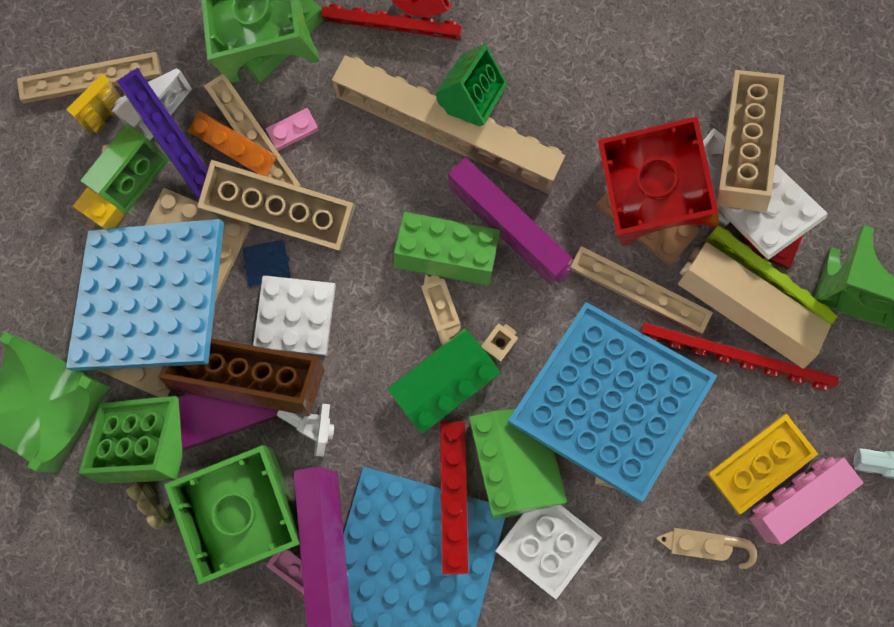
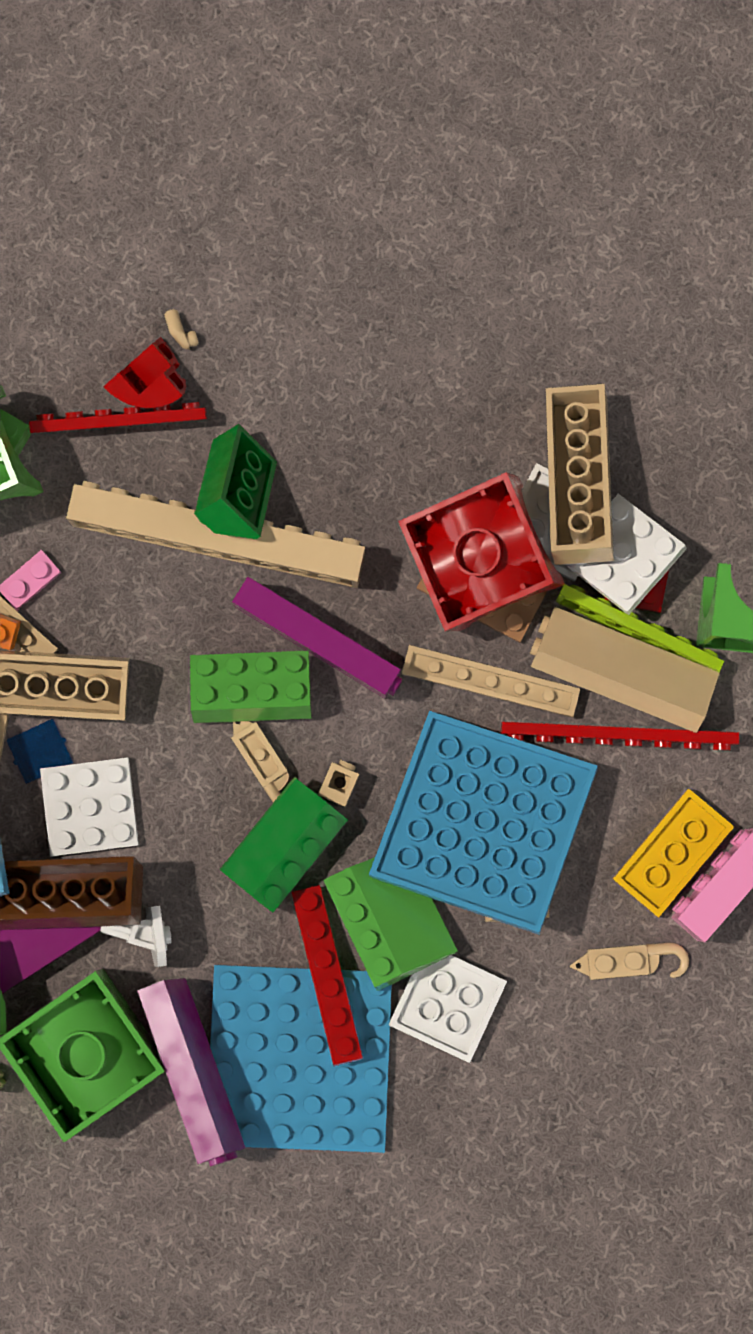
camera: 15 degrees left, 5 degrees up
(289, 567) = (158, 1100): bright pink plate -> none

